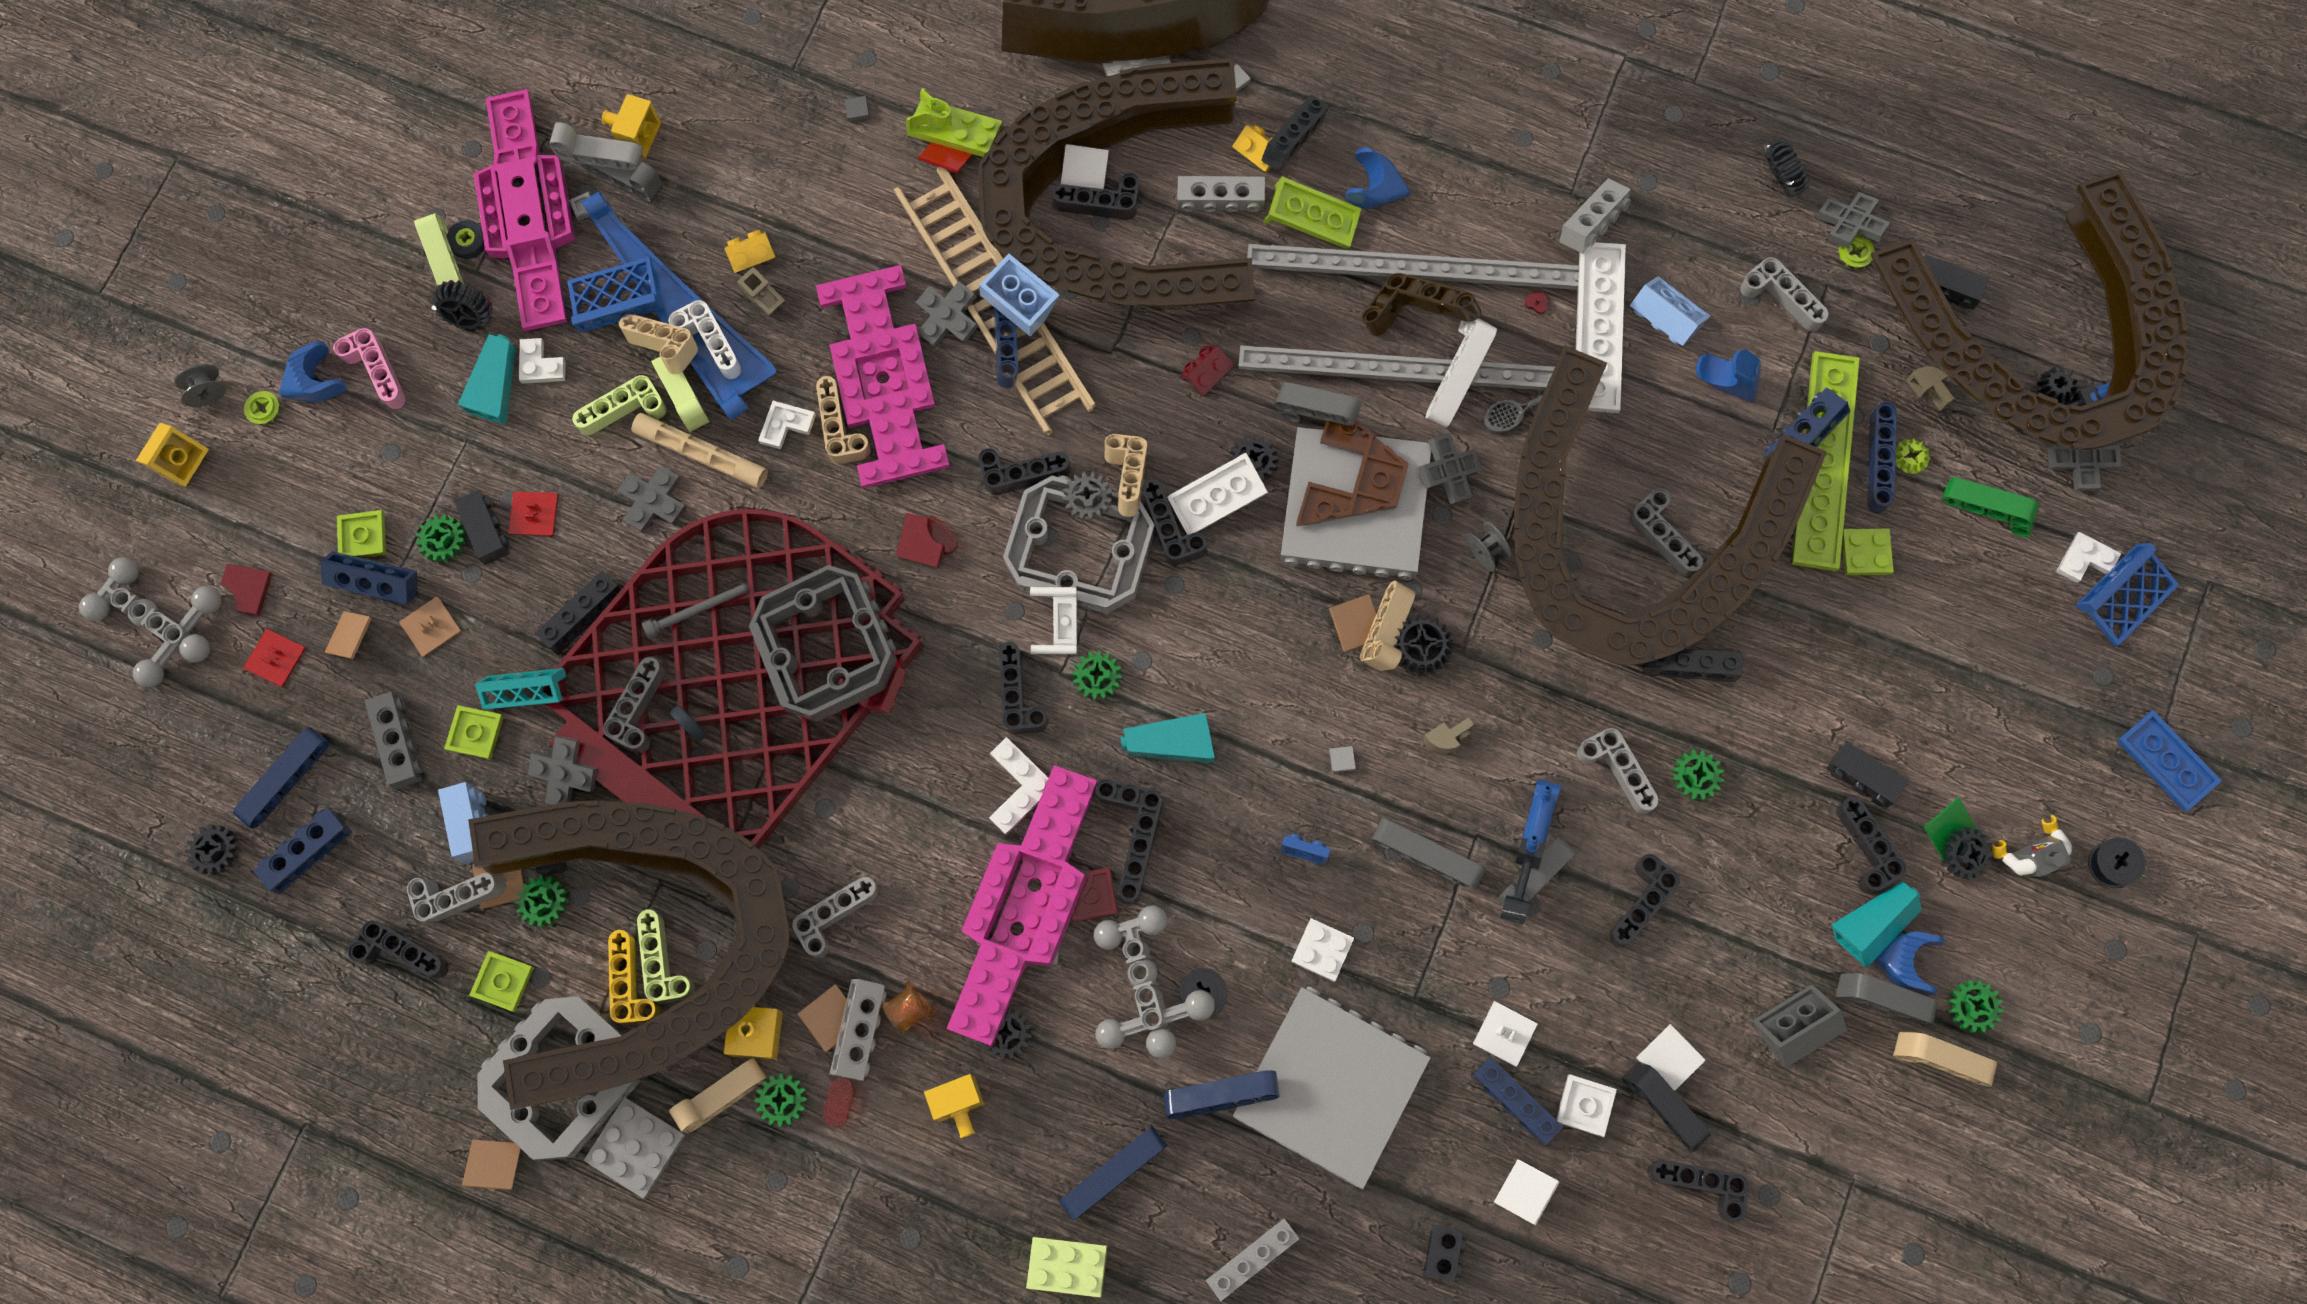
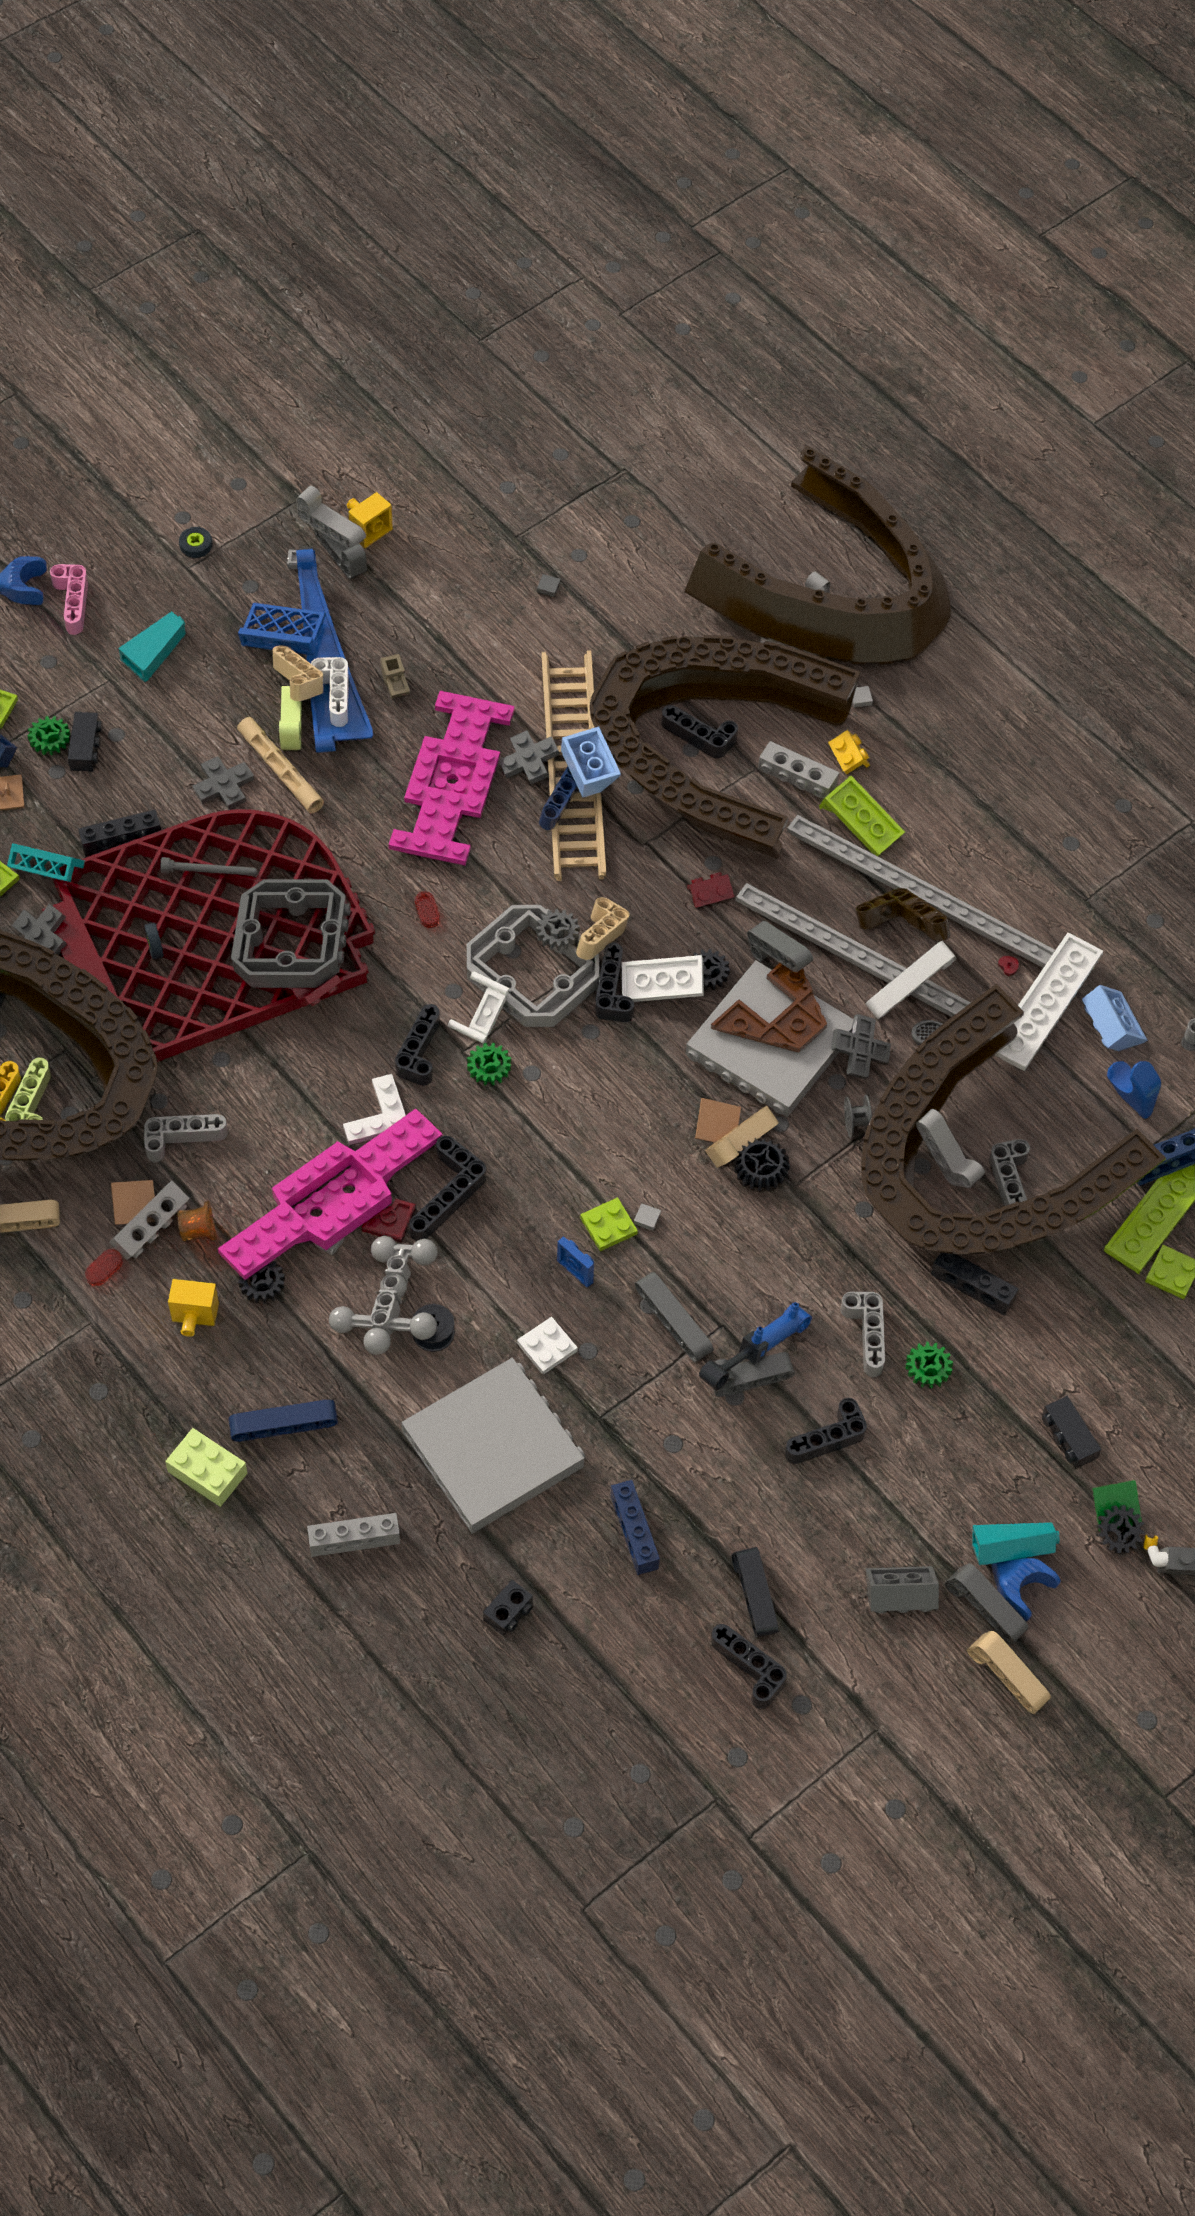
camera: 20 degrees right, 15 degrees down
(433, 237) = (172, 525): yellowish green beam -> none
(462, 305) = (163, 582): black gear -> none
(502, 205) = (240, 567): dark pink piece -> none
(533, 513) = (128, 752): red piece -> none
(536, 368) = (193, 651): white plate -> none
(618, 410) = (238, 705): yellowish green beam -> none
(639, 703) = (144, 895): dark grey beam -> none
(749, 251) = (406, 646): yellow bracket -> none
(755, 1035) = (69, 1184): yellow brick -> none
(781, 1110) = (61, 1242): green gear -> none
(784, 418) = (357, 772): white plate -> none
(836, 419) = (393, 796): tan beam -> none
(918, 543) = (408, 905): dark red tile -> none
(945, 157) = (597, 646): red piece -> none
(952, 126) = (610, 626): lime plate -> none
(1025, 468) = (514, 893): black beam -> none
(1084, 166) = (701, 702): white piece -> none
(1171, 739) = (519, 1136): teal slope -> none
(1221, 1094) = (401, 1401): dark blue beam -> none
(1295, 133) = (882, 751): black brick -> none
(1309, 787) = (608, 1224): none -> lime plate
(1384, 185) = (934, 825): blue animal -> none
(1445, 740) = (737, 1240): dark tan brick -> none
(1505, 1033) = (657, 1478): white piece -> none
(1526, 1192) = (602, 1596): white piece -> none
(1586, 1105) = (689, 1560): white plate -> none
(1595, 215) = (1090, 919): light grey brick -> none
(1599, 543) = (947, 1152): none -> light grey beam
(1671, 1057) = (781, 1558): white piece -> none
(1866, 844) = (1042, 1481): black beam -> none
(1968, 1014) = (1055, 1655): green gear -> none

